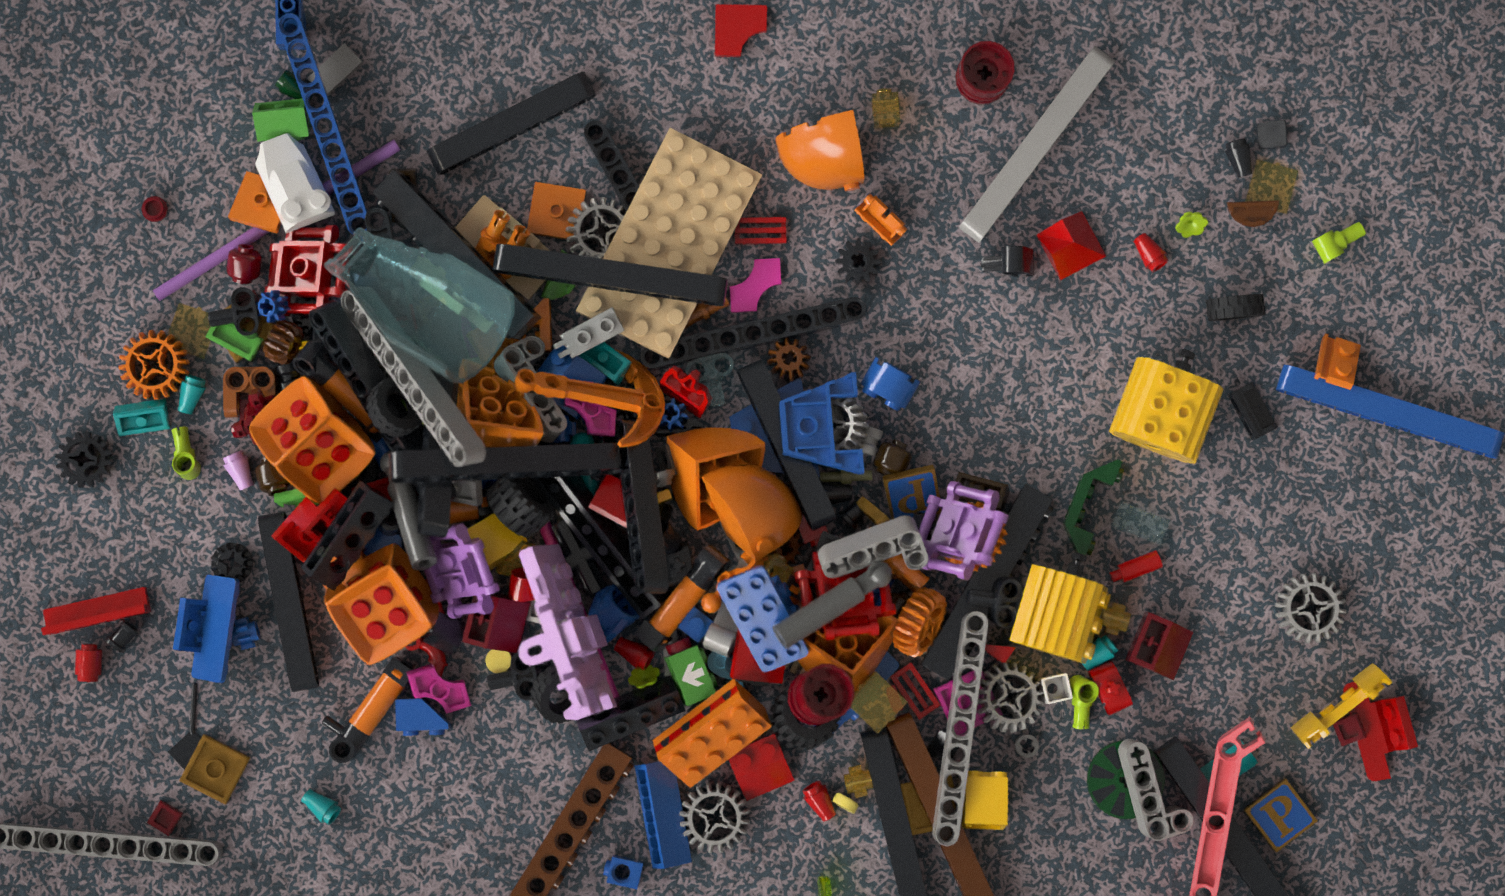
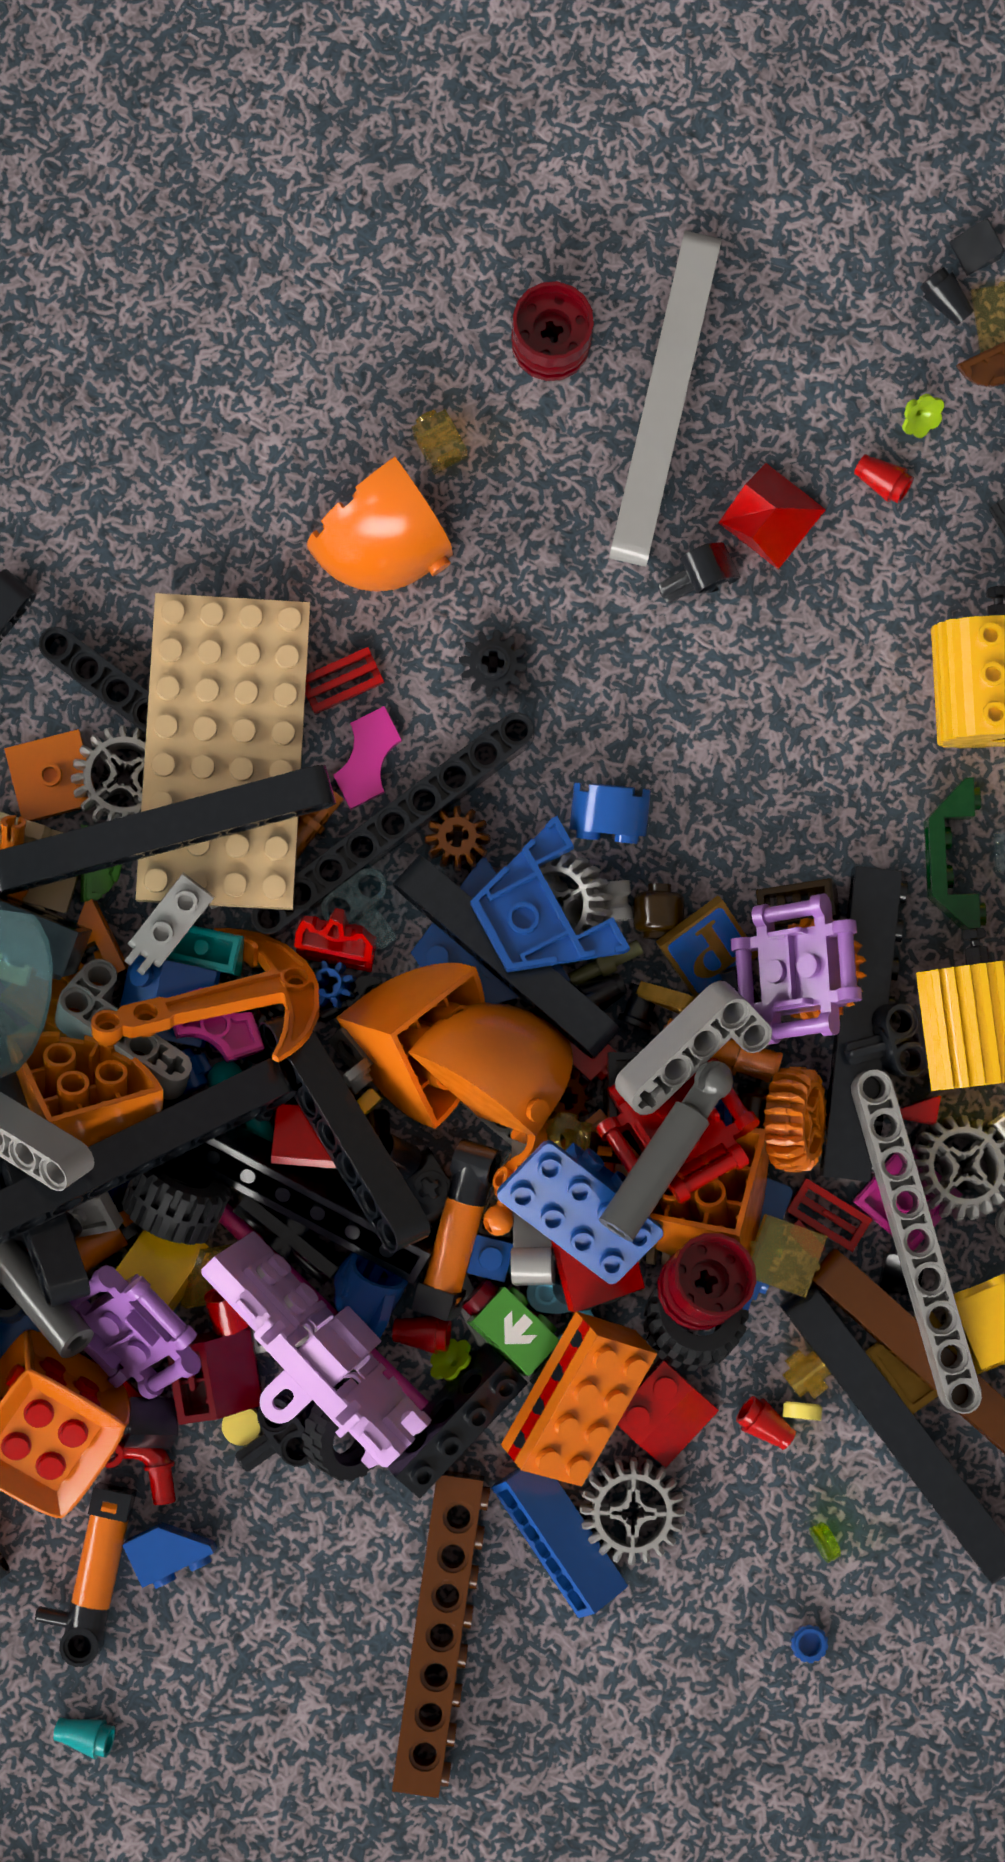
camera: 20 degrees left, 0 degrees up
(427, 683) = (159, 1502): dark pink tile -> none
(632, 880) = (556, 1650): blue brick -> none
(736, 25) = (186, 417): red tile -> none
(872, 212) = (514, 599): orange hinge -> none

